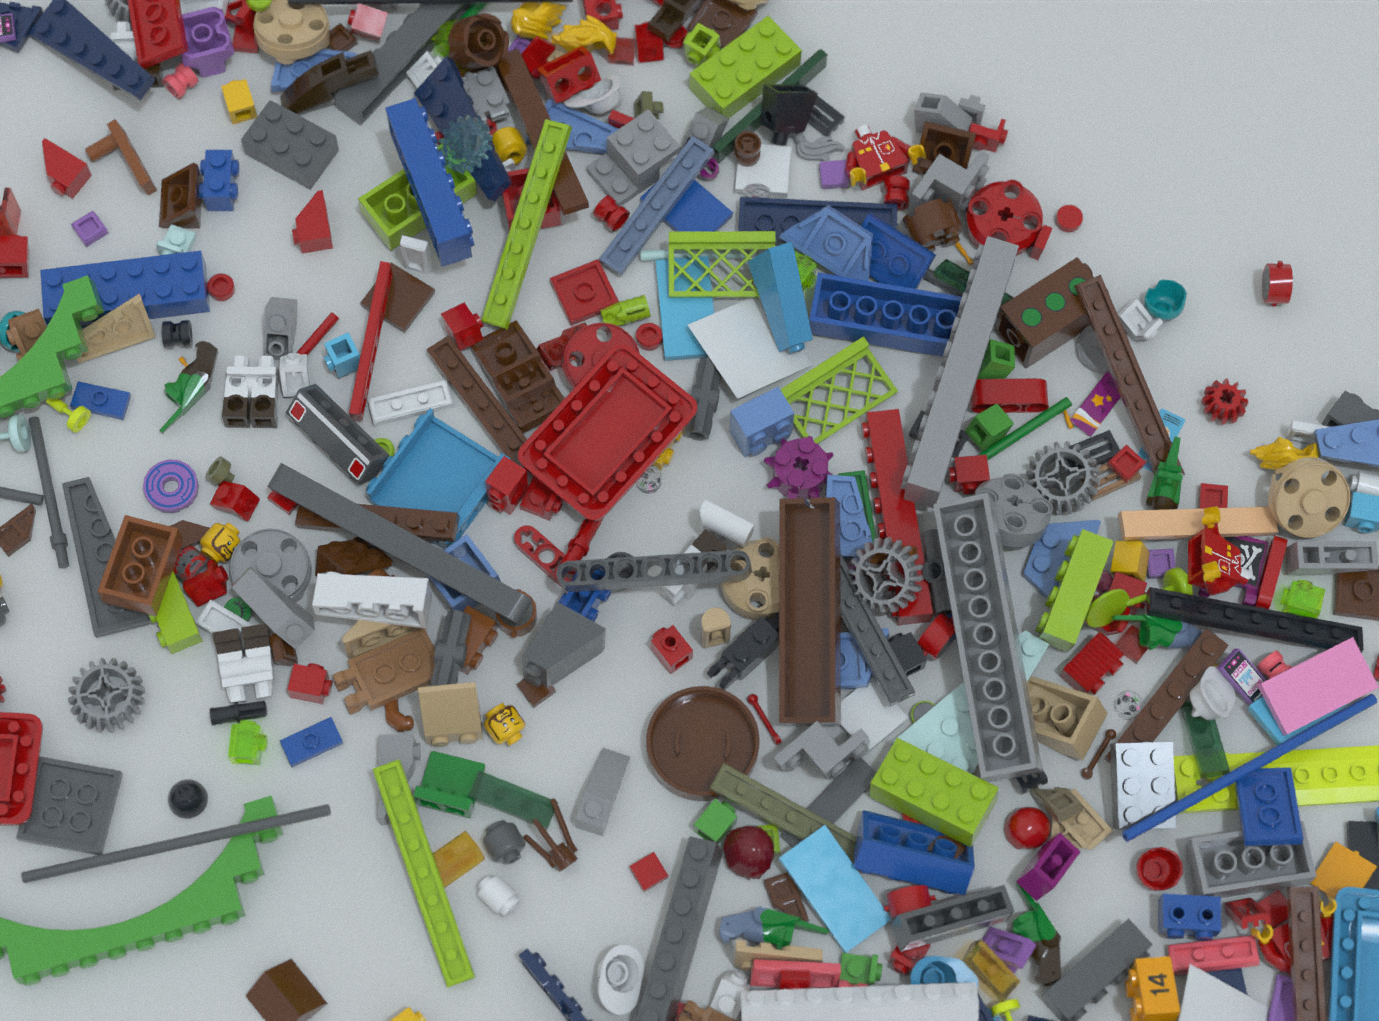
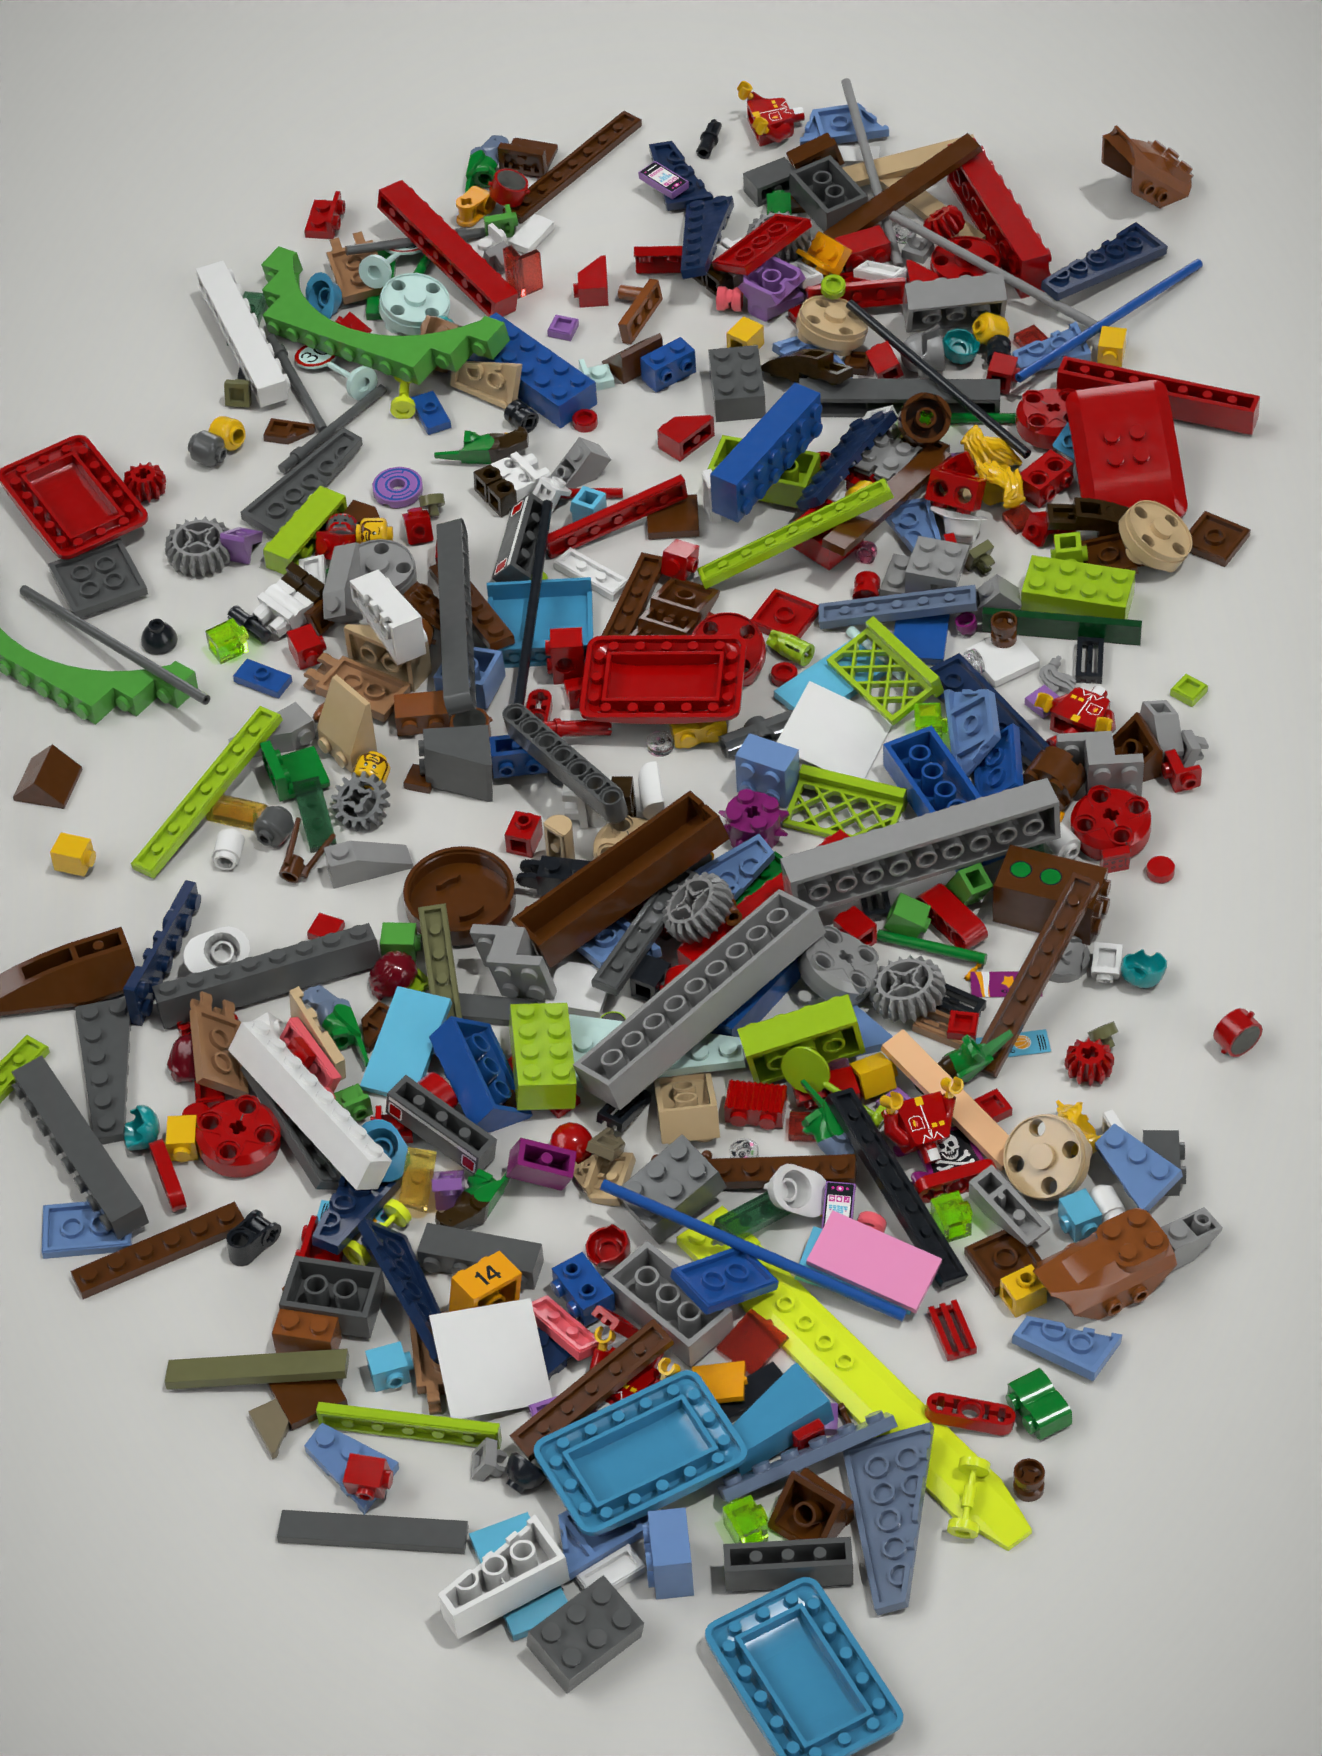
camera: 60 degrees right, 20 degrees down
(82, 99) = (658, 259): none -> red bracket
(132, 655) = (240, 542): none -> medium lavender slope
(140, 565) = (307, 489): dark orange brick -> none
(430, 475) = (533, 602): none -> black piece
(451, 649) = (396, 696): dark grey piece -> none
(467, 142) = (822, 456): clear light blue gear -> none
(540, 744) = (364, 802): none -> dark grey gear
(782, 296) = (886, 715): dark azure slope -> none
(786, 109) = (1061, 629): black torso -> none
(903, 68) = (1189, 690): none -> lime tile
(1204, 372) = (1104, 1033): none -> olive tile
(1323, 822) = (753, 1341): none -> clear red piece

